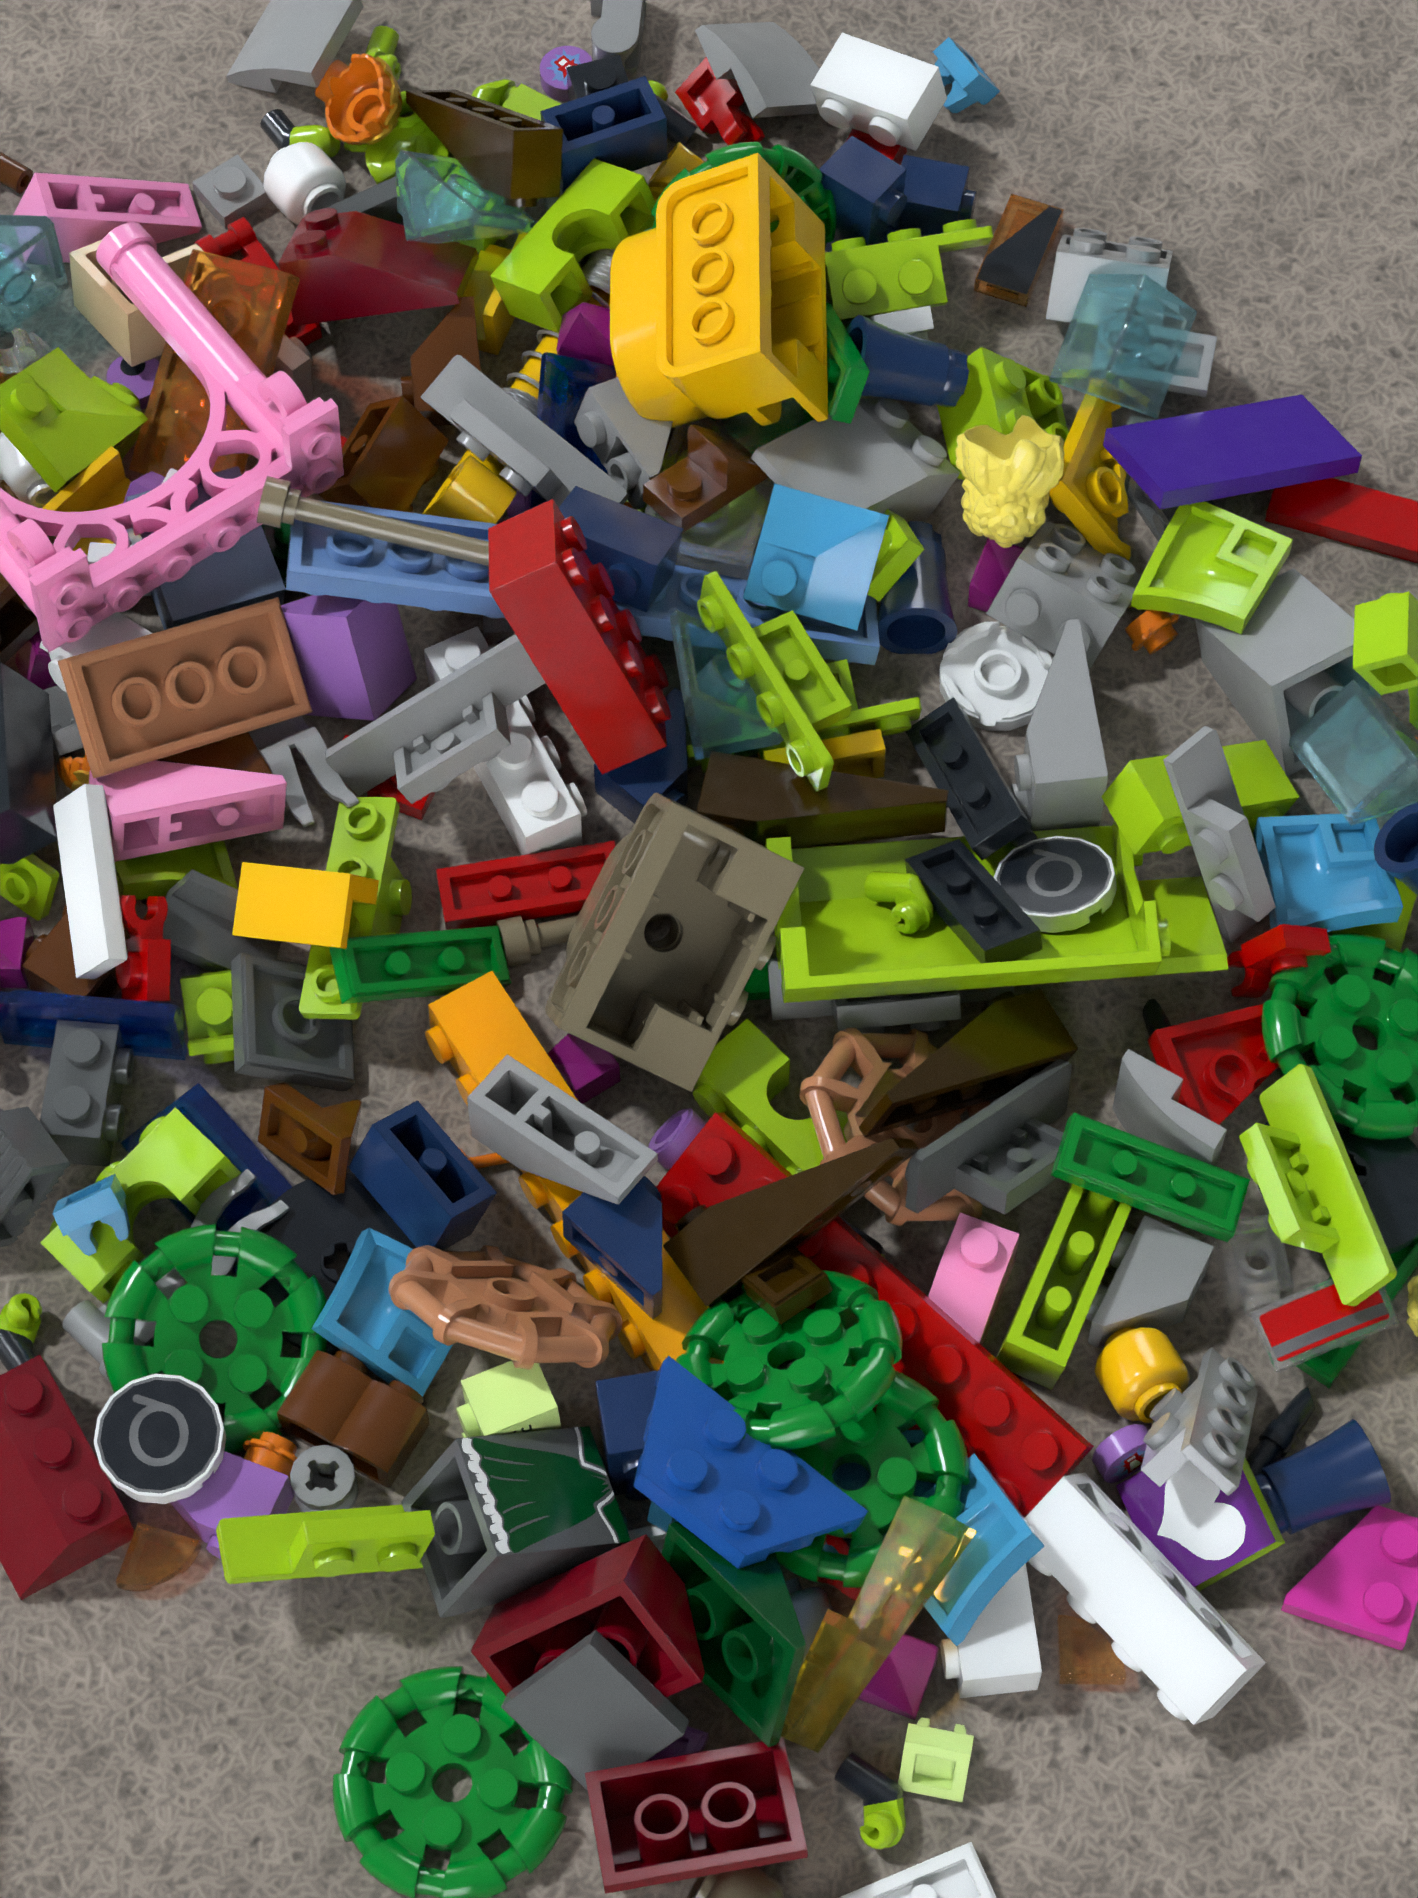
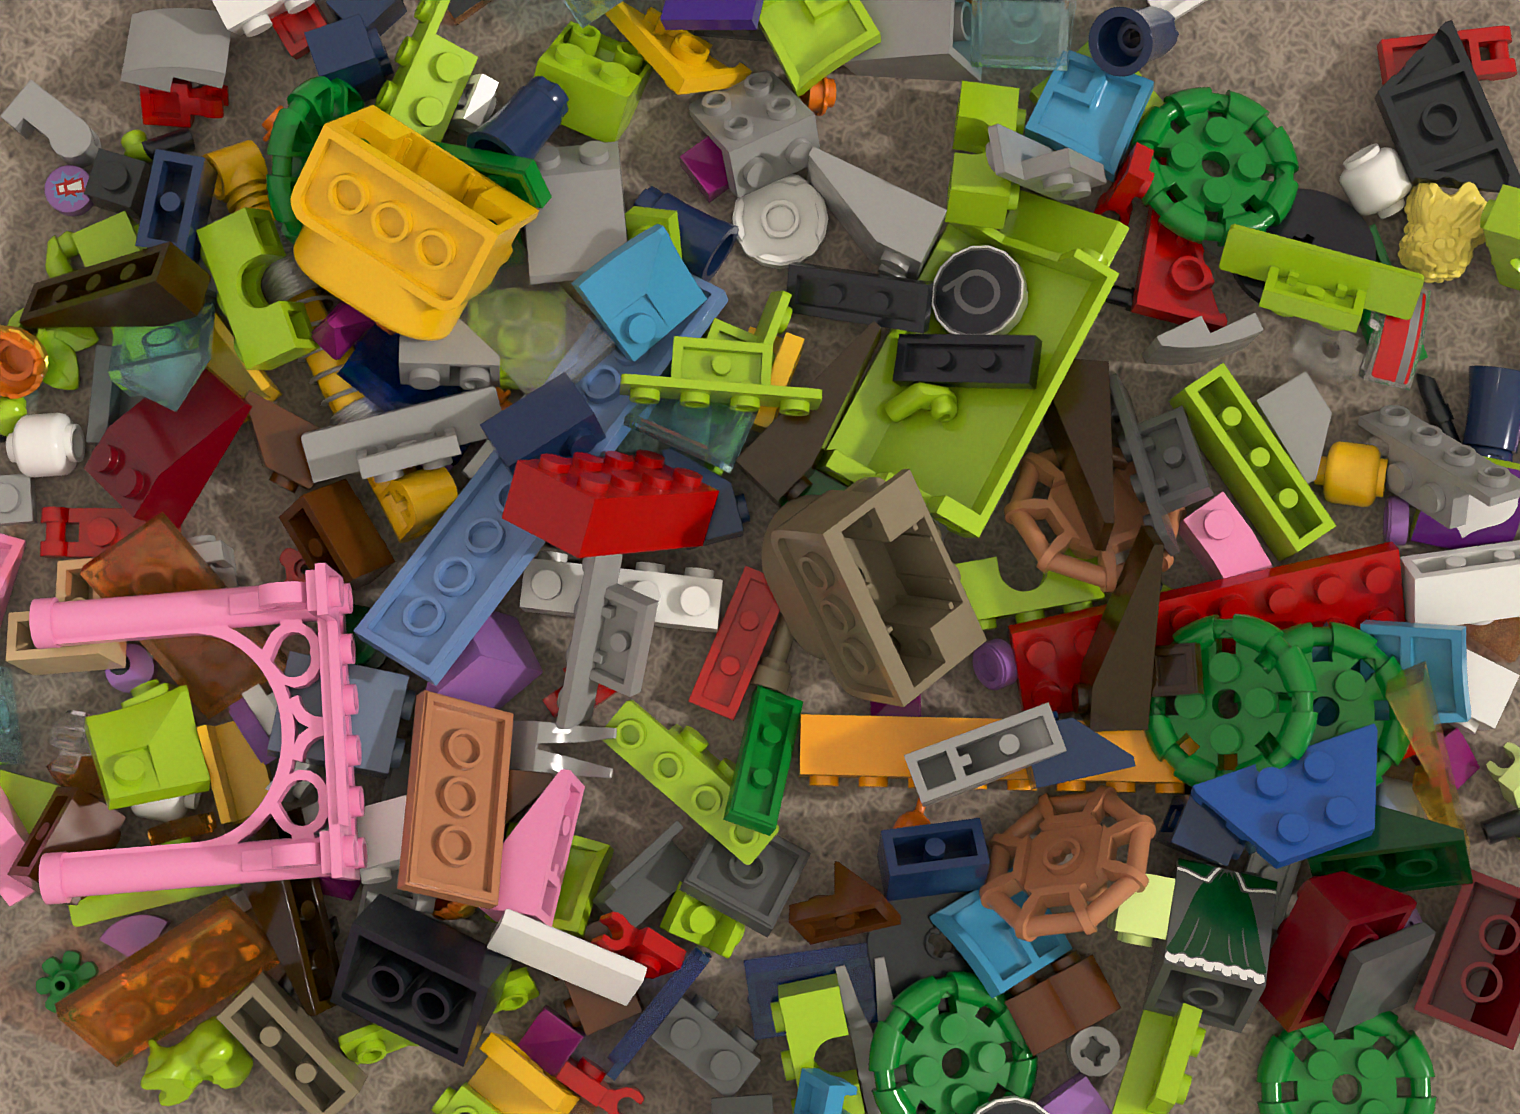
camera: 60 degrees left, 20 degrees up
(271, 1452) = (1055, 1075): orange plate -> none
(285, 505) = (367, 646): dark tan piece -> none
(299, 904) = (679, 819): yellow panel -> none
(704, 481) = (522, 328): reddish brown slope -> none
(1008, 479) = (662, 114): light yellow hair -> none
(1150, 1177) = (1245, 382): green tile -> none

